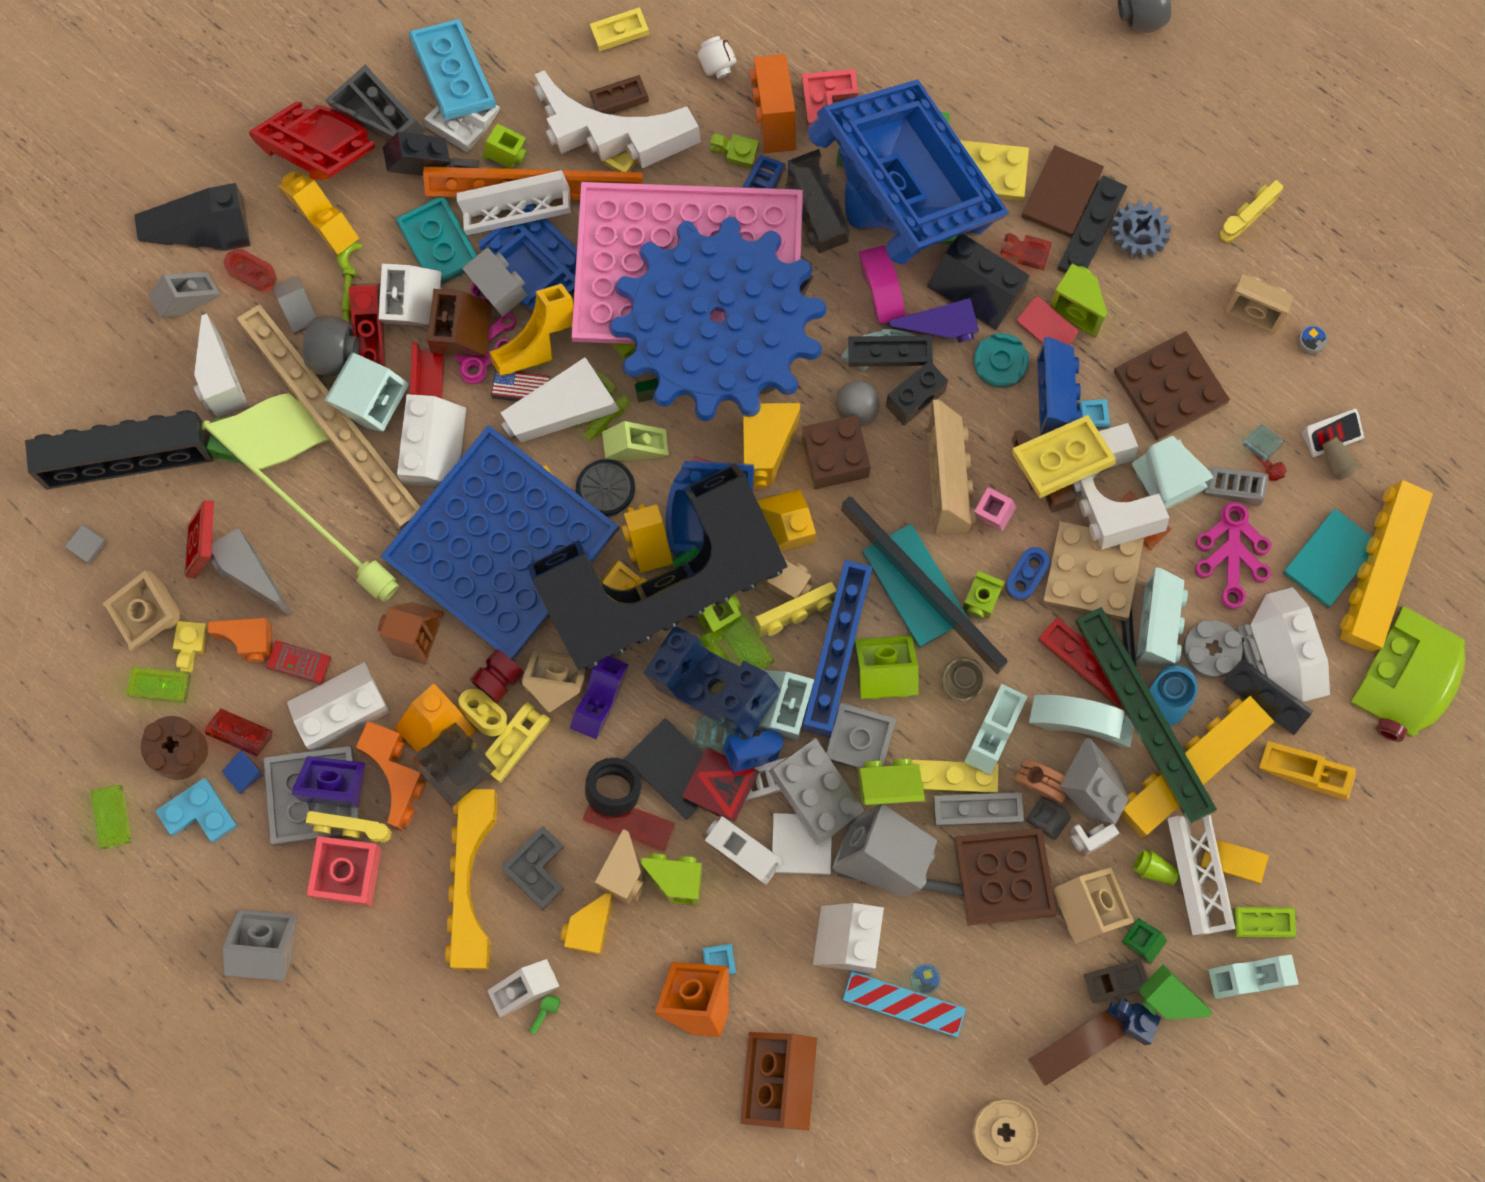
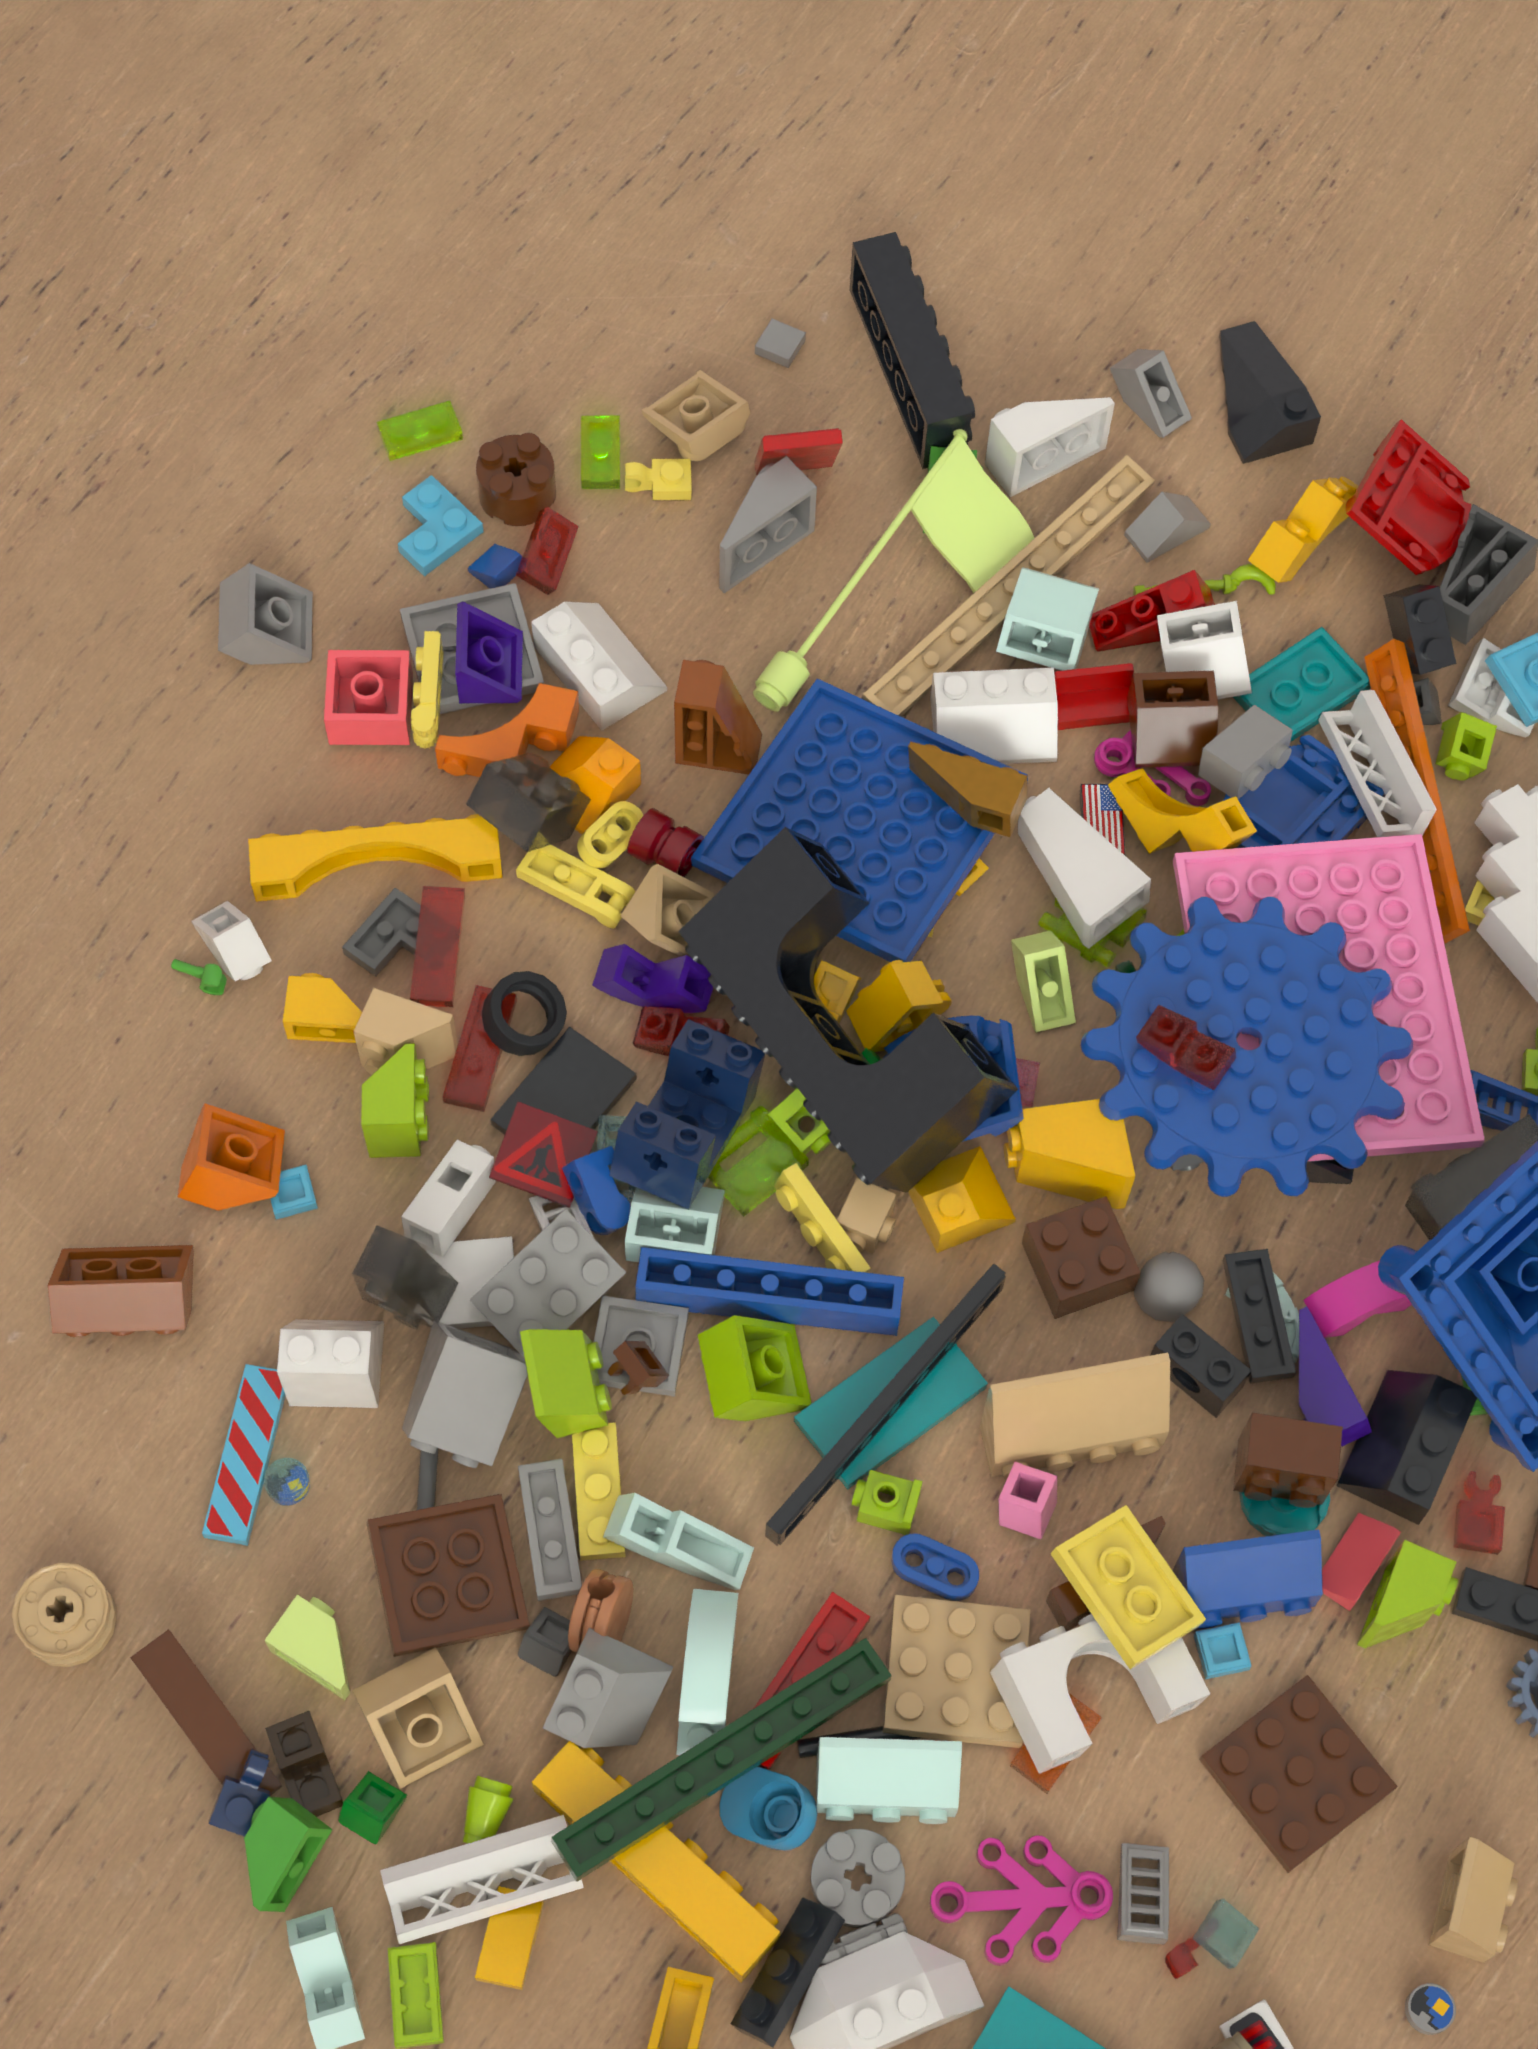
camera: 80 degrees right, 10 degrees down
(250, 636) = (677, 541): orange arch -> none
(251, 271) = (1202, 466): clear red plate -> none
(298, 662) = (655, 608): red tile -> none
(328, 345) = (1110, 560): dark grey wheel -> none
(503, 456) = (977, 791): none -> pearl gold slope
(554, 840) = (438, 946): none -> clear red tile
(606, 486) = (971, 954): dark grey wheel -> none
(636, 688) = (660, 1027): none -> clear red slope
(724, 352) = (1182, 1047): none -> clear red slope
(807, 887) = (403, 1279): none -> clear smoke wedge
(882, 735) = (640, 1365): none -> reddish brown tile
(963, 679) = (747, 1481): dark tan hair -> none
(993, 349) = (1287, 1460): none -> reddish brown brick
(1040, 968) = (311, 1643): none -> yellowish green slope
(1098, 837) = (524, 1715): white bracket -> none
(1171, 472) = (1141, 1777): light aqua piece -> none

